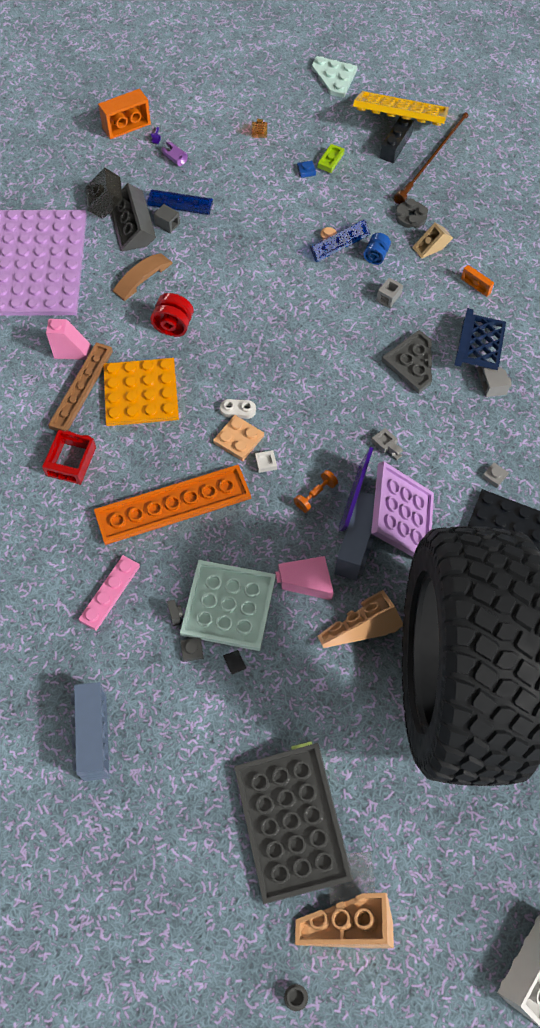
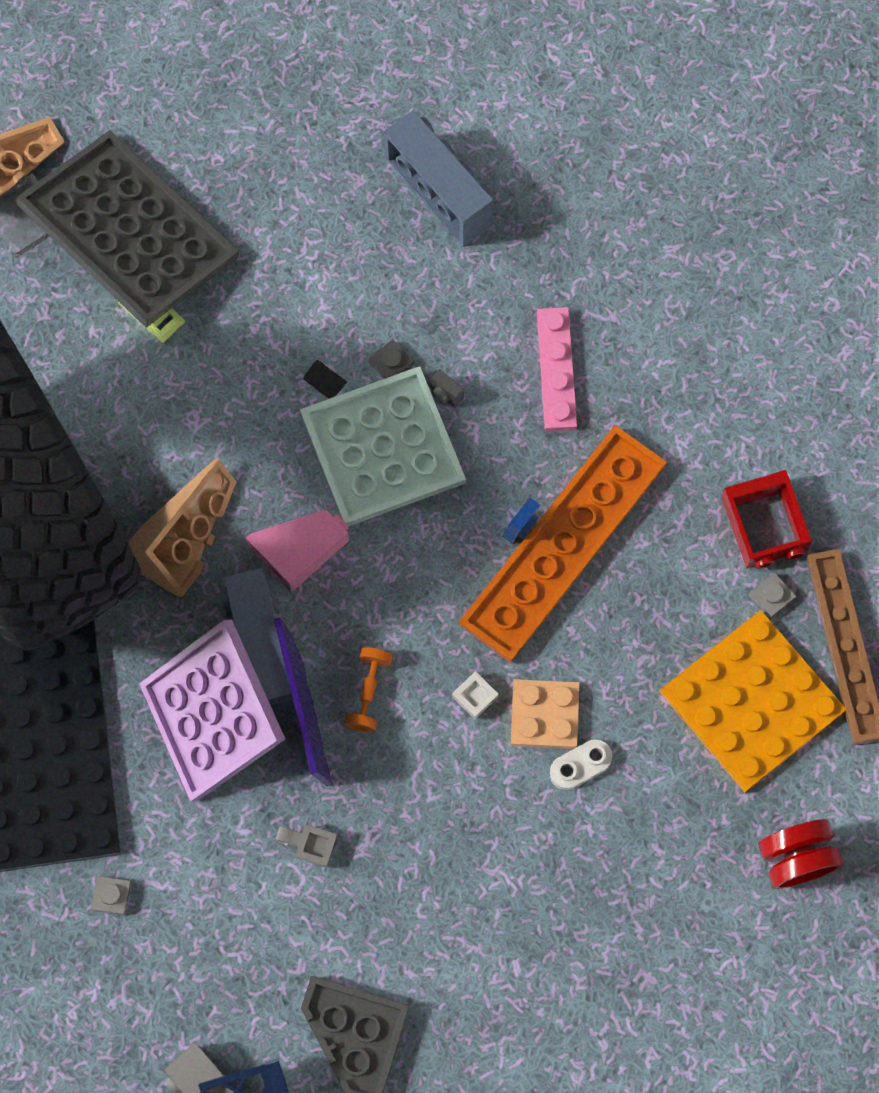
camera: 150 degrees right, 10 degrees up
(95, 427) = (772, 595): none -> light grey plate
(187, 517) = (522, 522): none -> blue plate
(296, 997) = (19, 69): dark grey plate -> none

